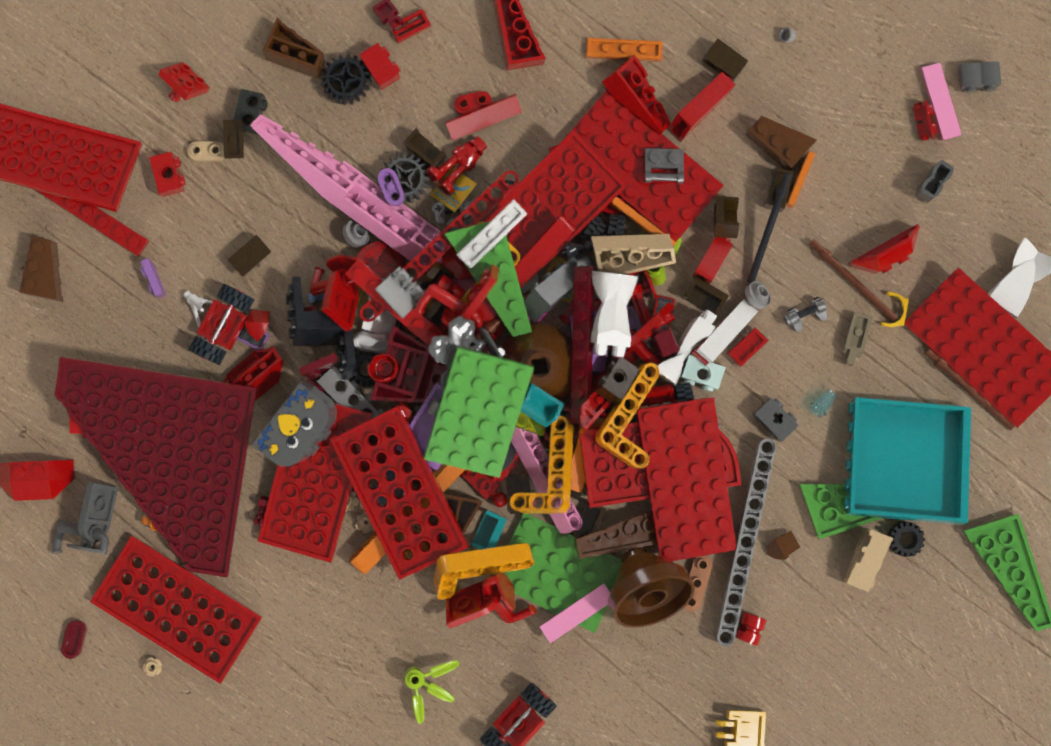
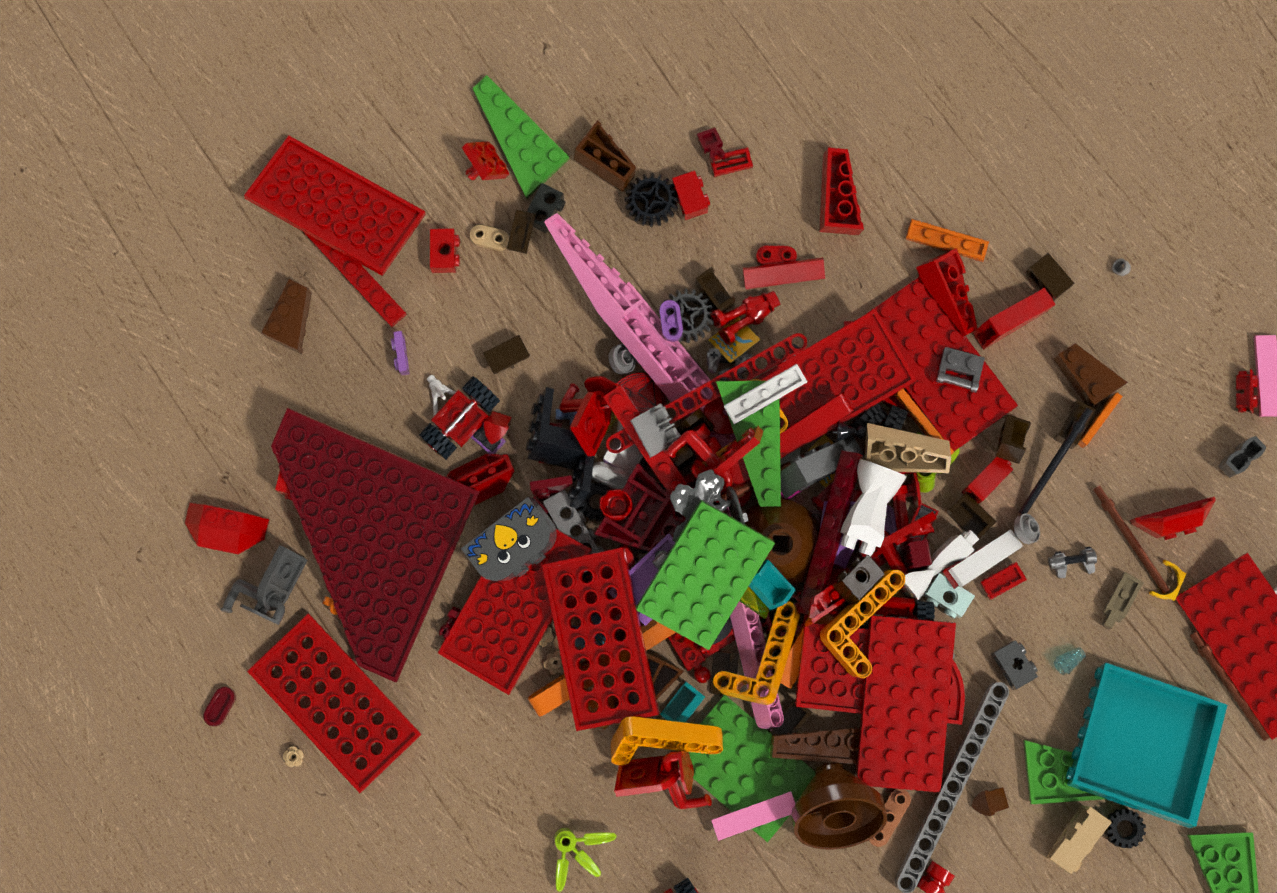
camera: 15 degrees right, 5 degrees down
(218, 58) = (525, 145): none -> bright green wing

